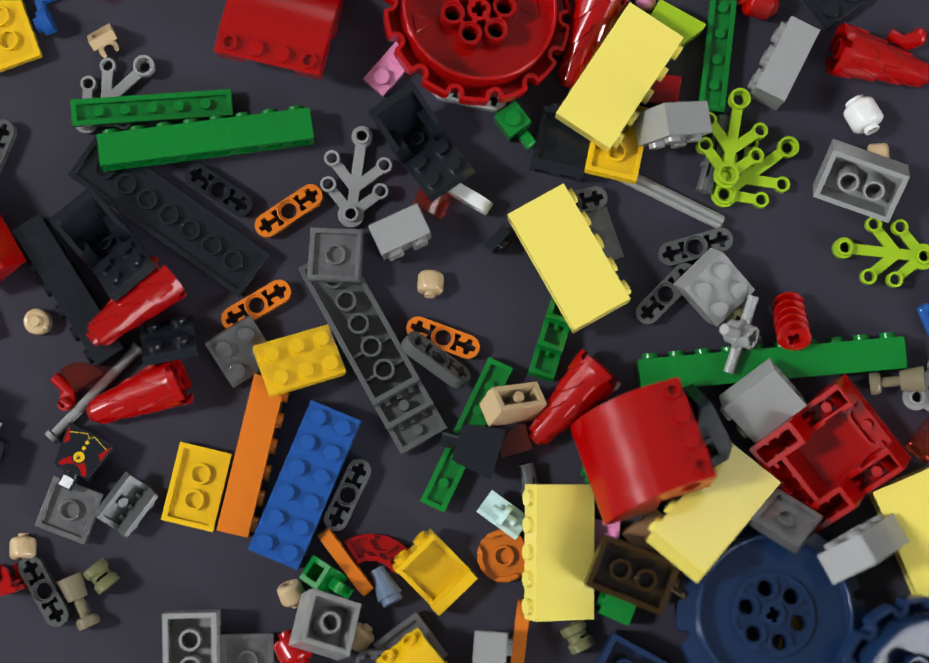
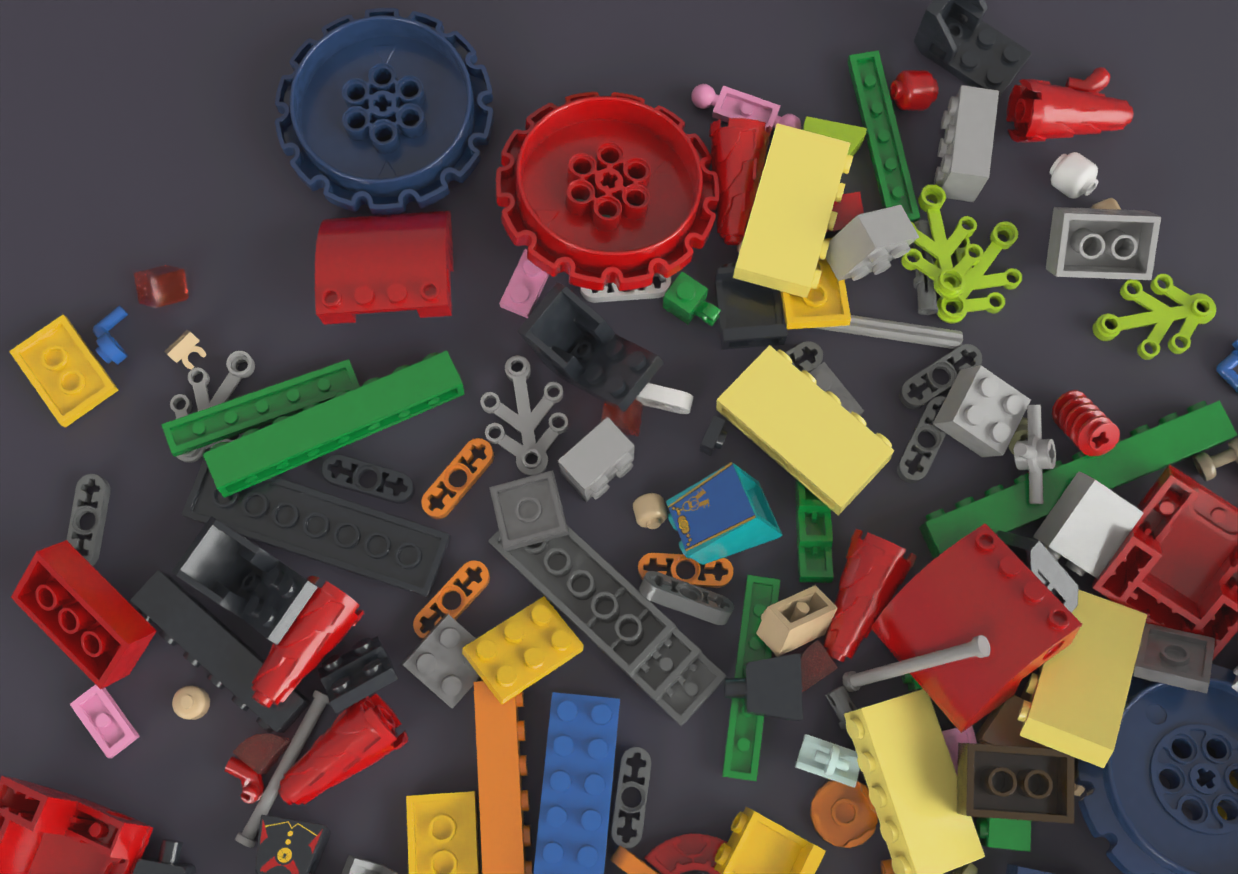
camera: 15 degrees left, 10 degrees down
(484, 305) = (722, 515): none -> slope
(633, 468) = (978, 647): none -> light grey bar

